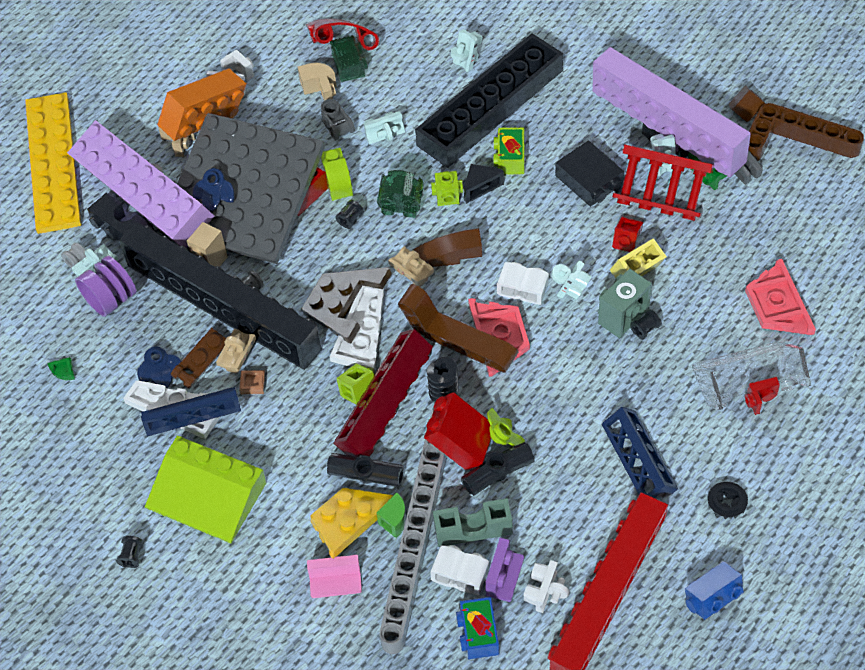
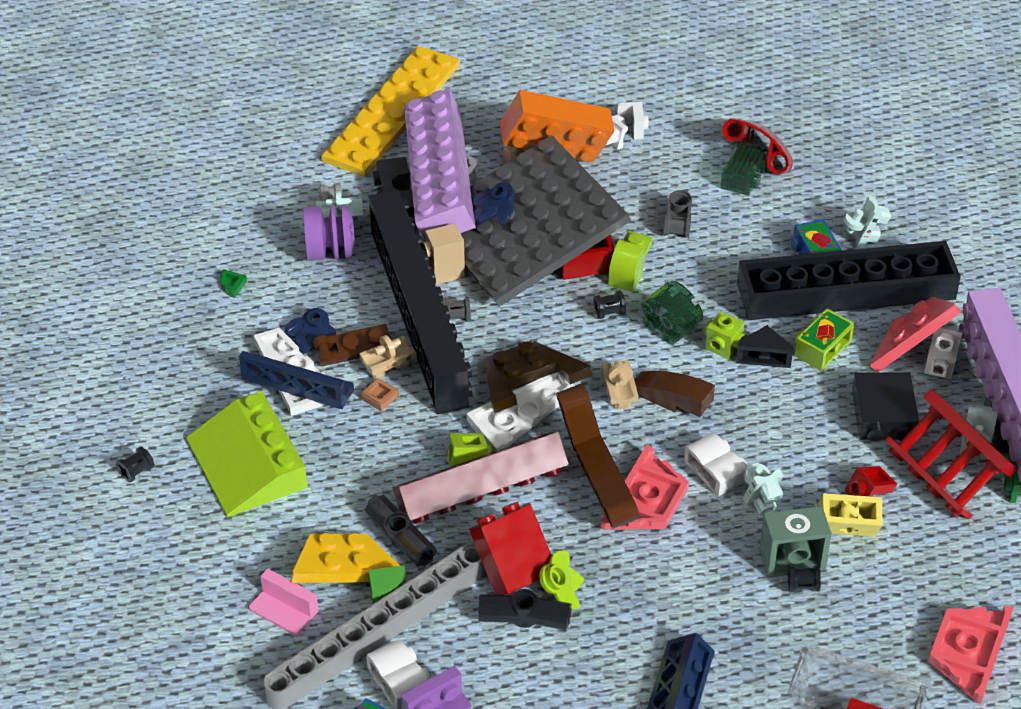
camera: 35 degrees right, 10 degrees down
(316, 78) = (696, 170): tan brick -> none
(384, 127) = (718, 248): light aqua hips -> none
(442, 378) = (545, 495): black piece -> none
(444, 84) = (813, 238): none -> brick
(489, 522) = (428, 633): sand green arch -> none
(565, 108) = (912, 329): none -> coral wing
(594, 113) = (943, 353): none -> white hips

